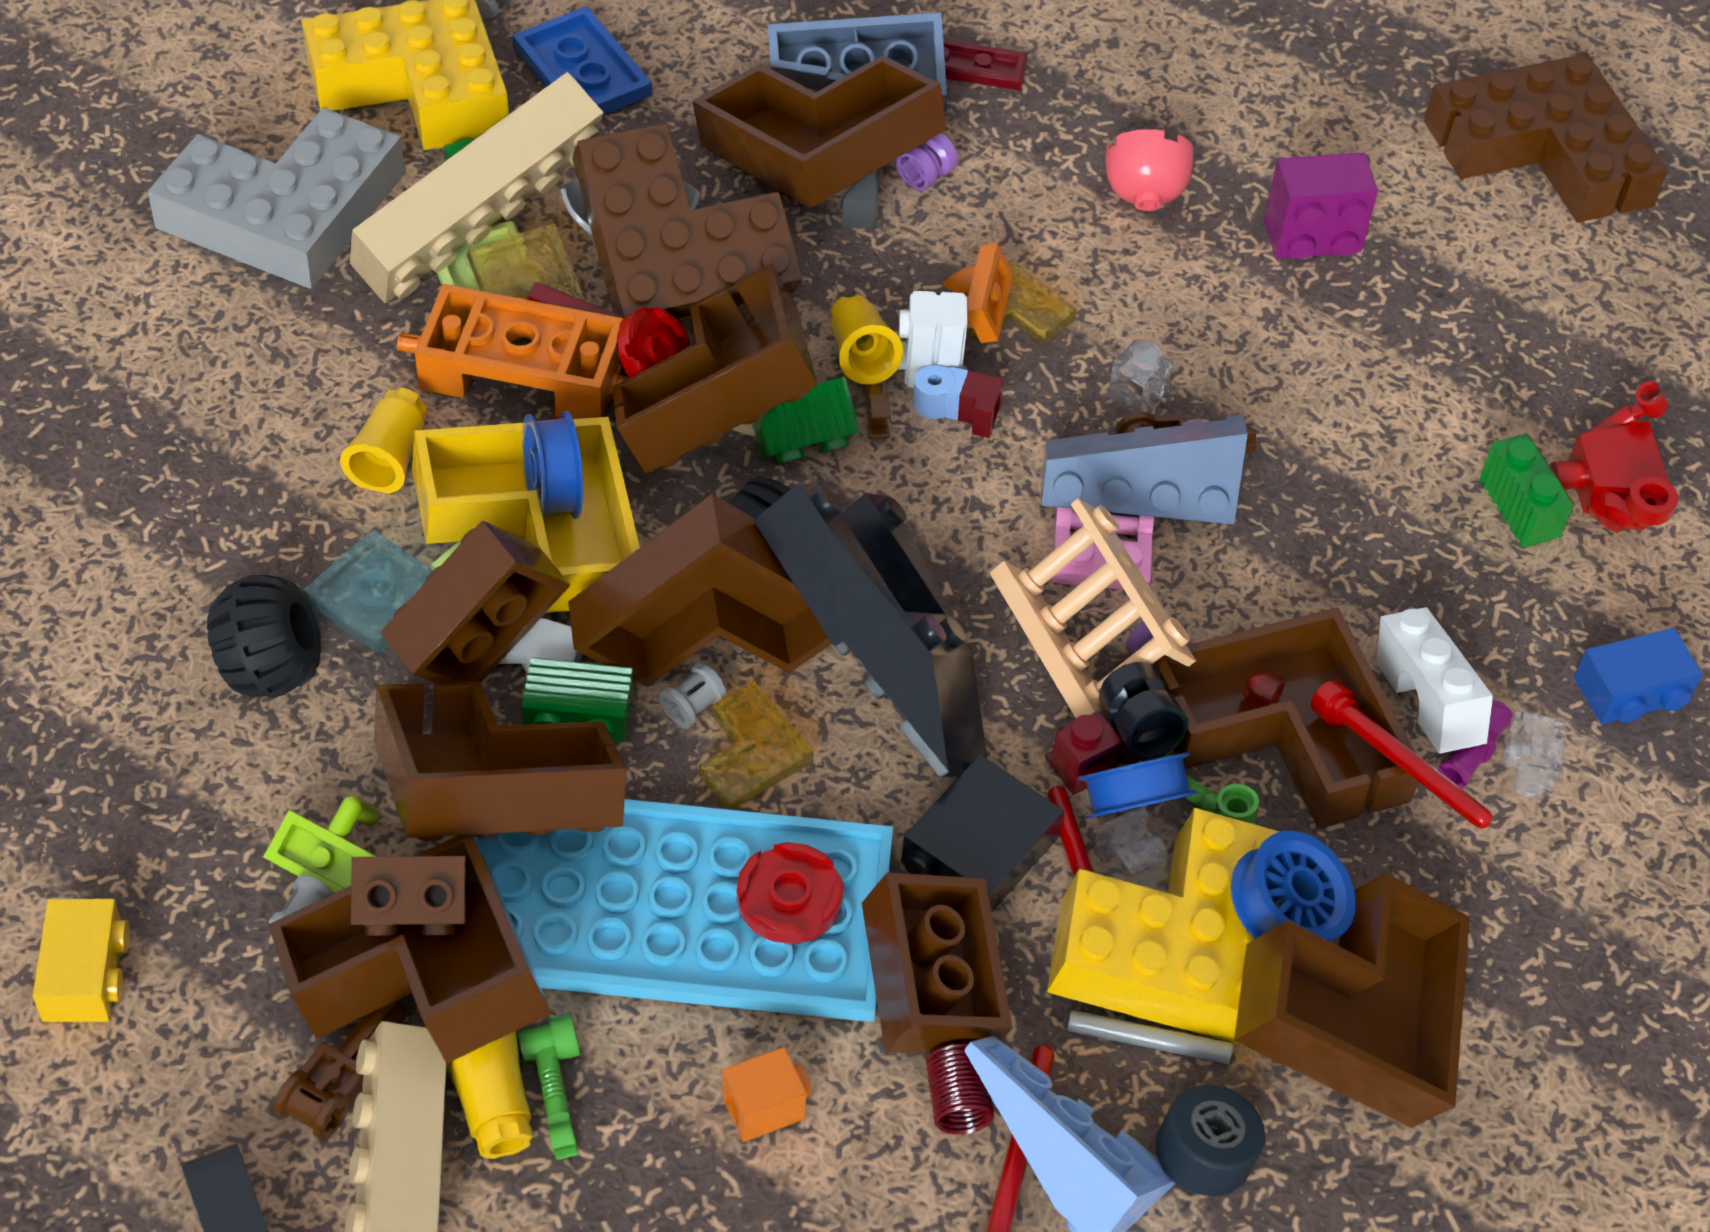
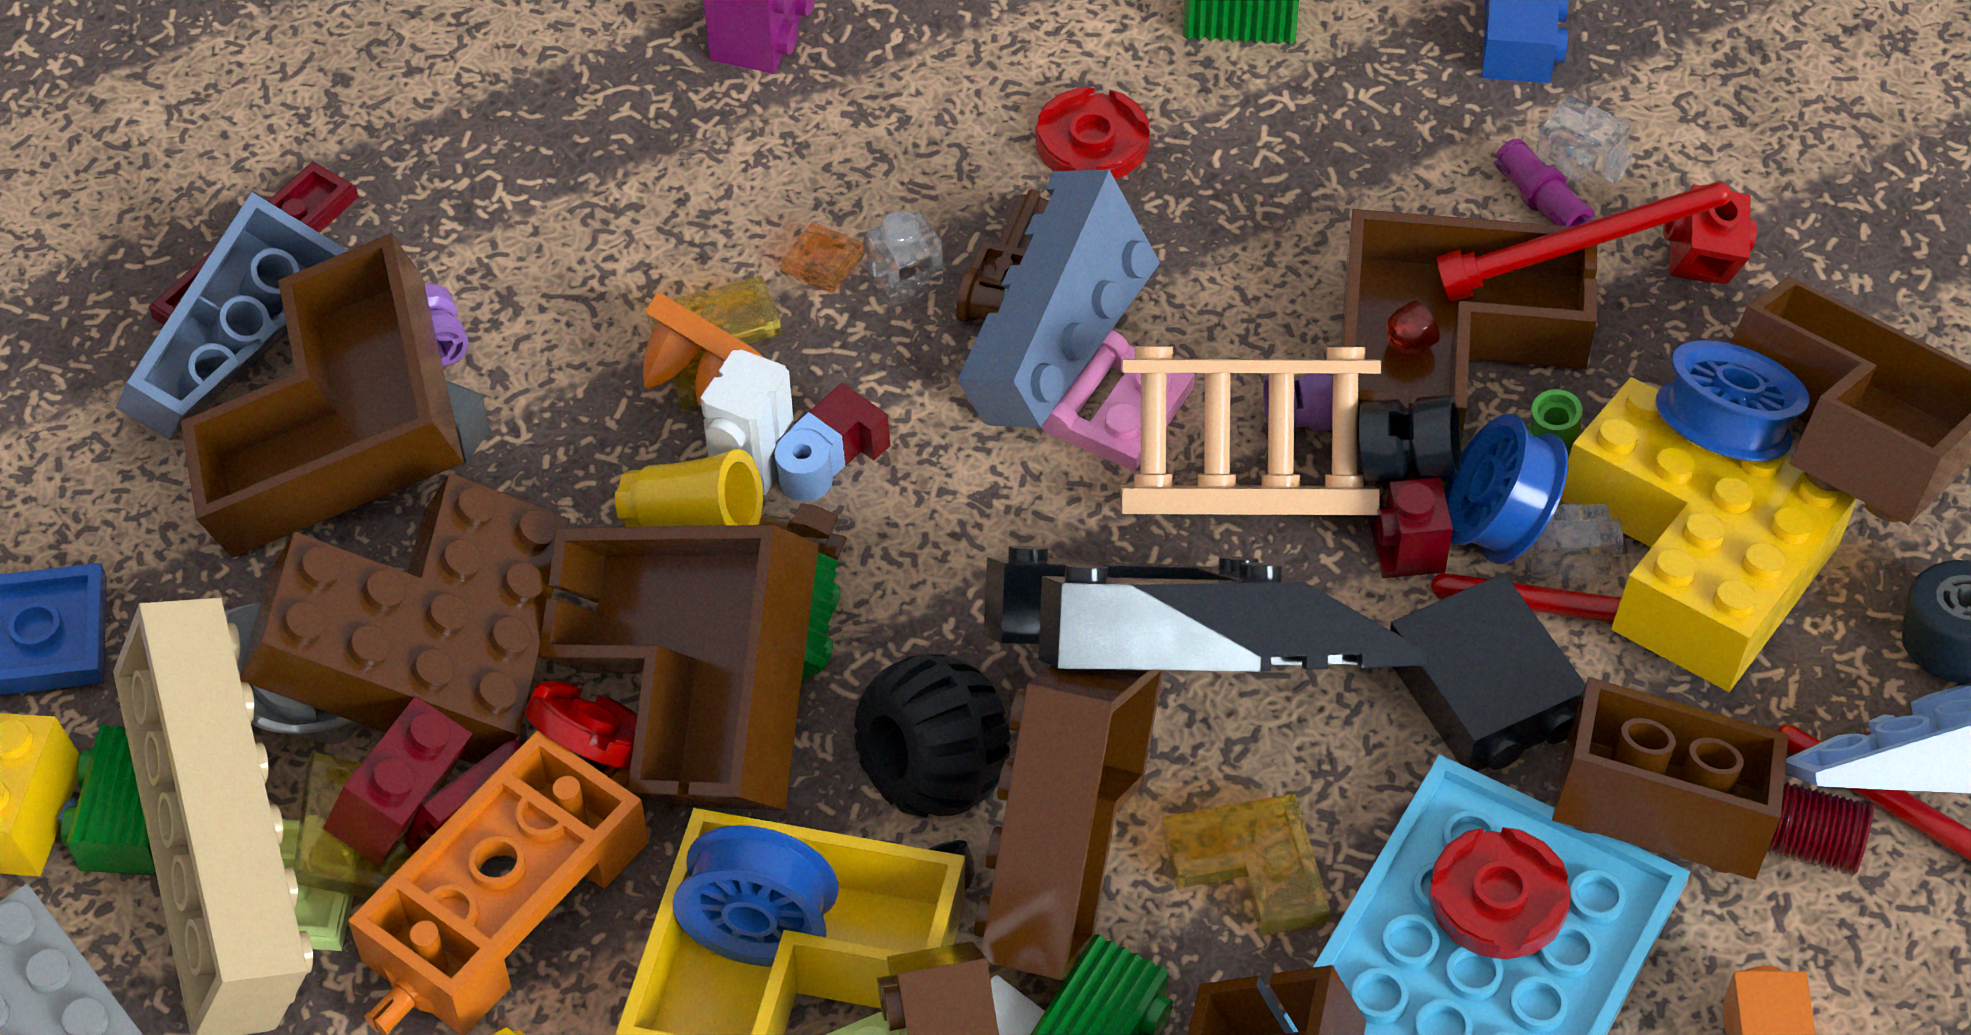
camera: 60 degrees left, 0 degrees up
(556, 261) = (395, 780): none -> dark red brick
(692, 695) = (1147, 893): light grey bush -> none
(1118, 335) = (822, 257): none -> clear orange tile
(1149, 168) = (596, 119): coral cylinder -> none
(1150, 1037) = (1798, 630): light grey bar -> none
(1337, 465) = (1092, 144): none -> red tile
(1451, 695) = (1512, 164): white arch -> none
(1494, 860) = (1713, 242): none -> red brick

